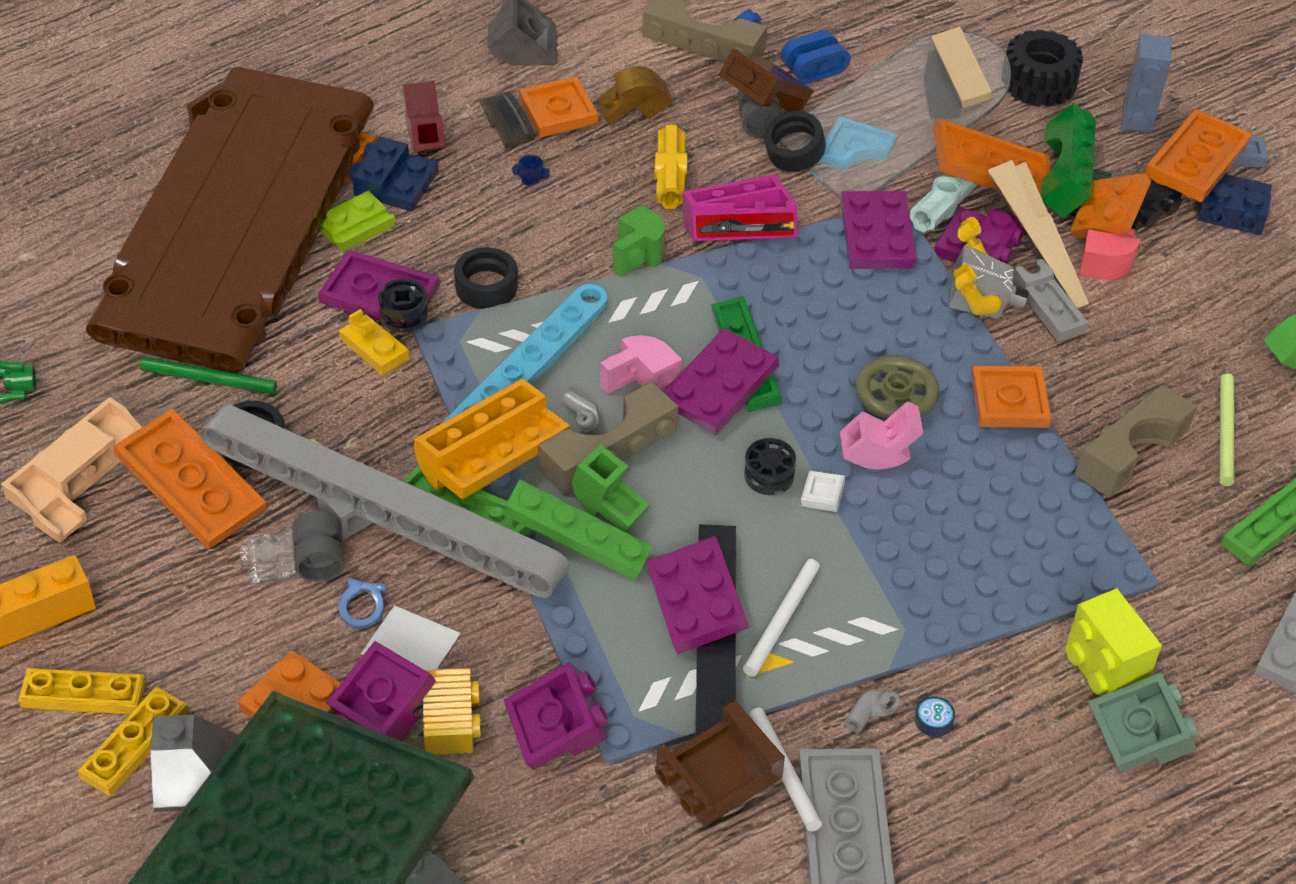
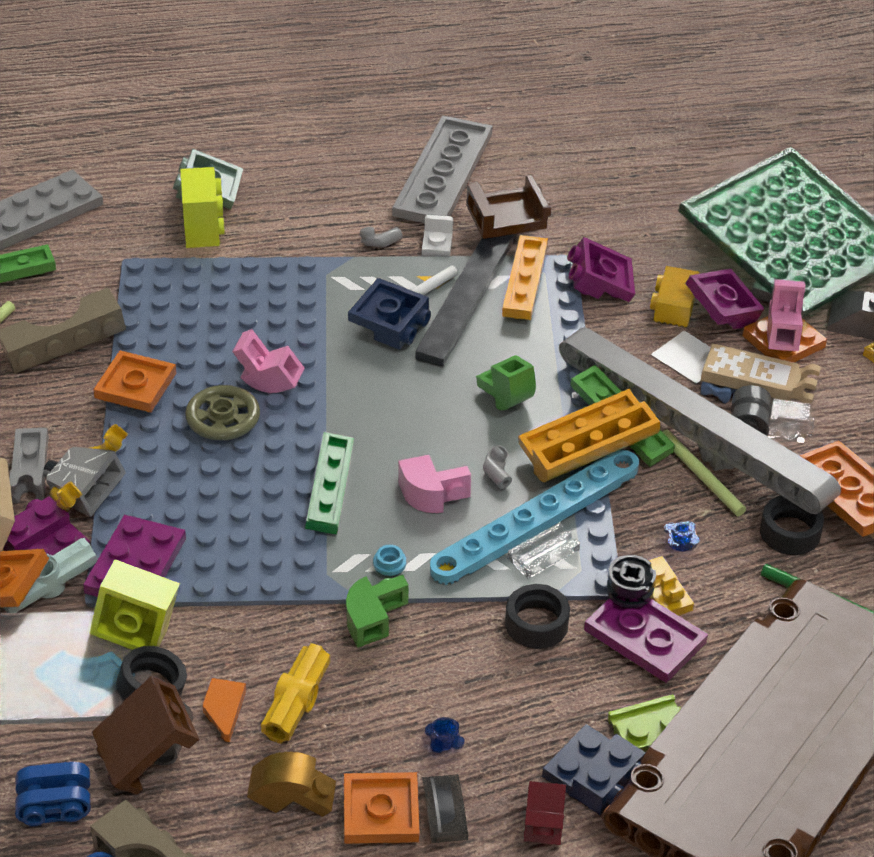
camera: 160 degrees left, 5 degrees down
(294, 659) = (785, 316): none -> bright pink brick
(318, 615) = (741, 368): none -> tan tile
(367, 398) = (682, 535): none -> clear blue plate
(497, 335) = (539, 548): none -> clear tile
(577, 529) = (548, 364): bright green plate -> none
(646, 289) = (389, 560): none -> medium azure plate
(646, 419) = (451, 437): dark tan arch -> none
(652, 676) = (525, 277): none -> light orange plate
(696, 595) = (471, 309): magenta plate -> none
(721, 380) = (365, 454): magenta plate -> none
(727, 152) = (224, 704): none -> orange tile
(740, 210) = (259, 602): dark pink wedge -> none
(768, 467) = (364, 387): black wheel -> none
(787, 556) = (391, 313): none -> dark blue plate
(790, 778) = (460, 212): white bar -> none
(796, 725) = (437, 235): none -> white bracket
(823, 491) = (331, 363): white tile -> none
(840, 162) = (133, 607): none -> neon yellow brick
(934, 716) = (339, 225): tile -> none

